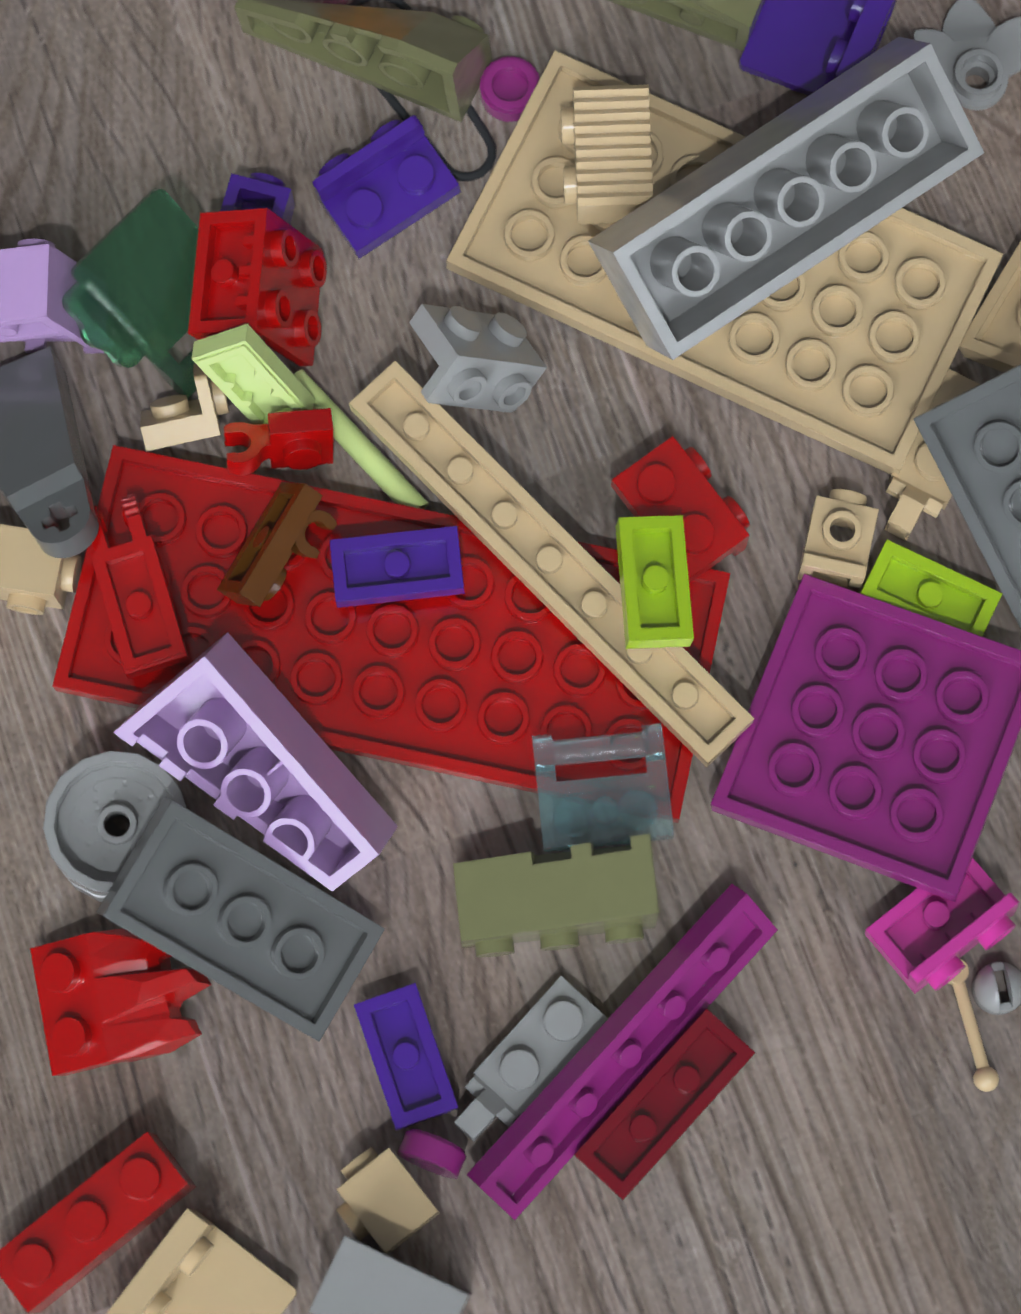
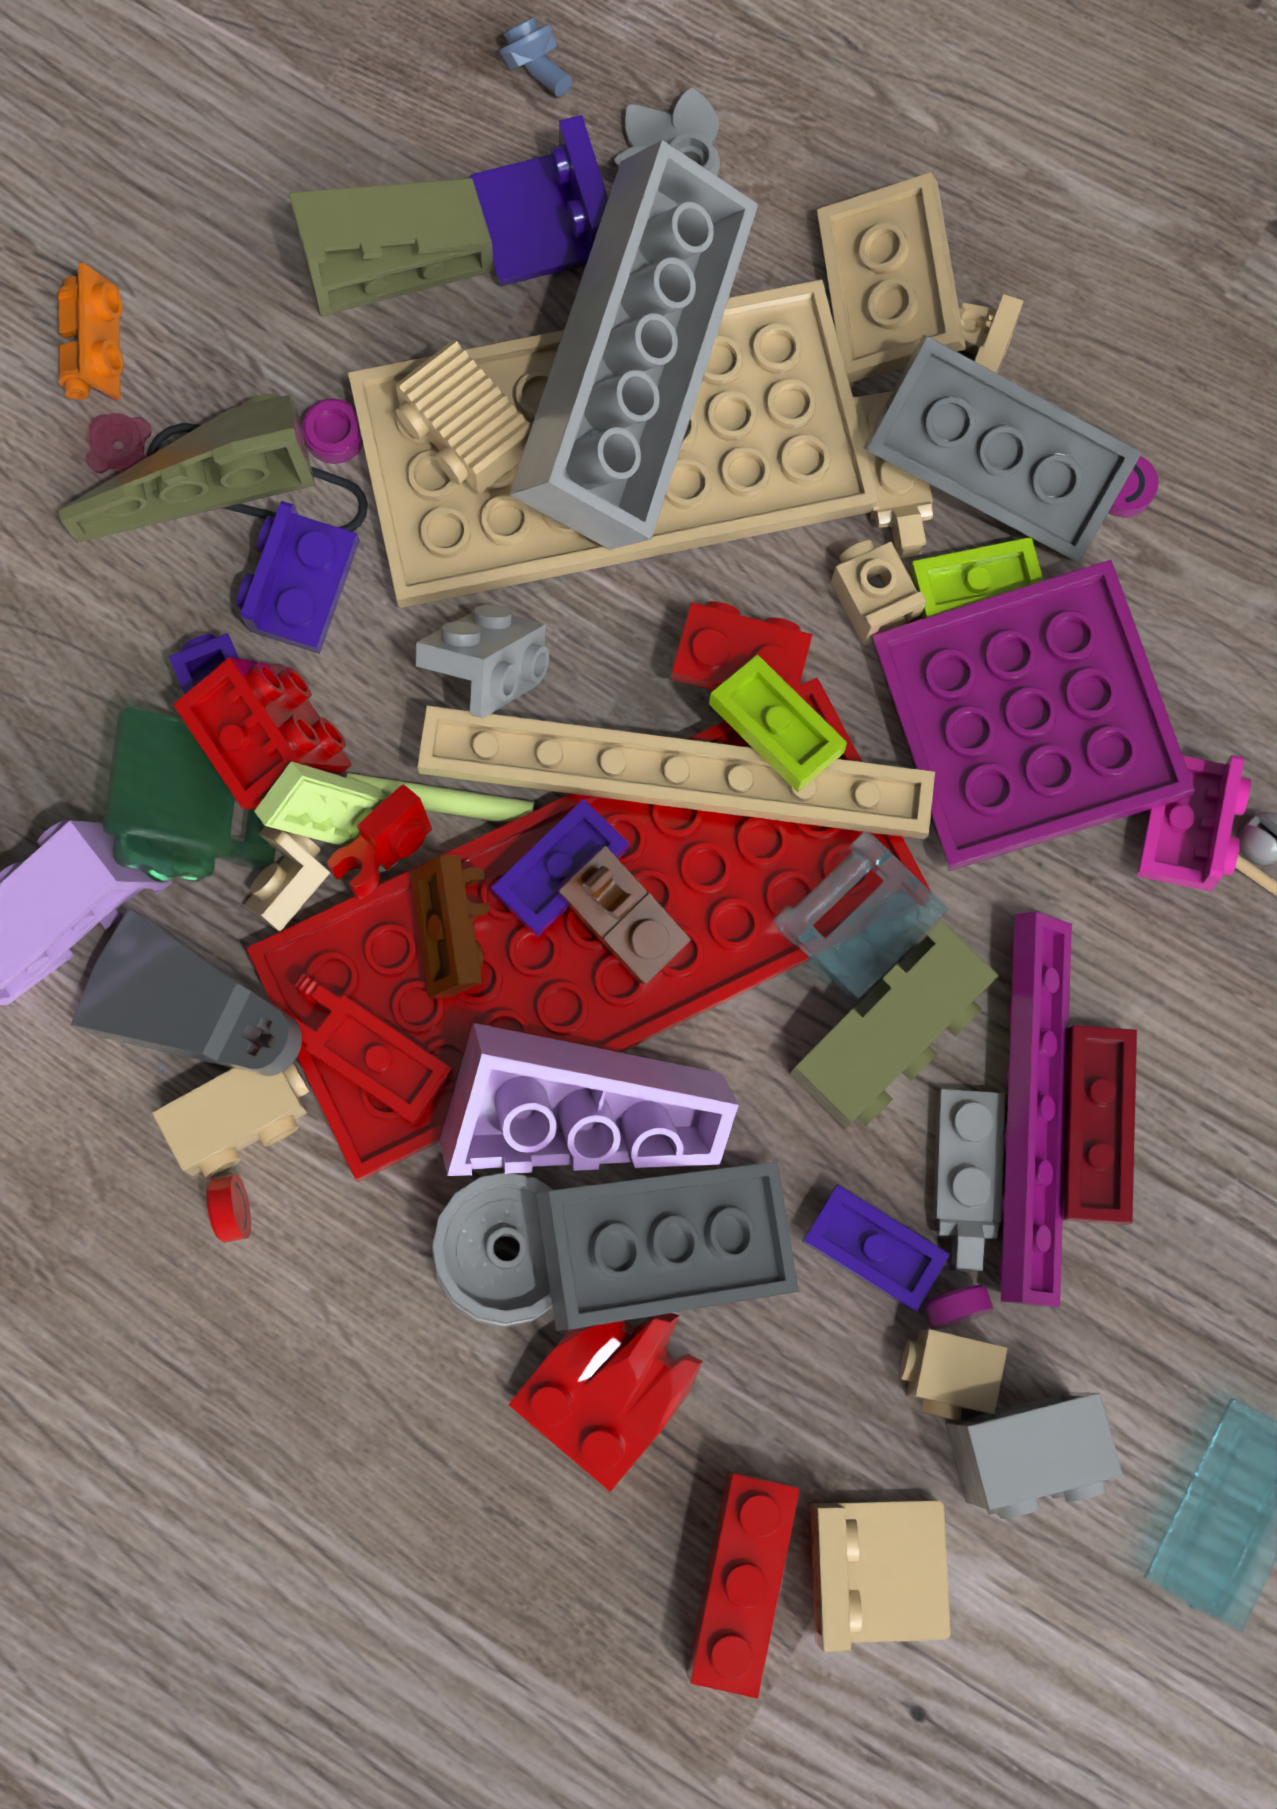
camera: 50 degrees left, 0 degrees up
(414, 639) = (622, 914): none -> reddish brown plate

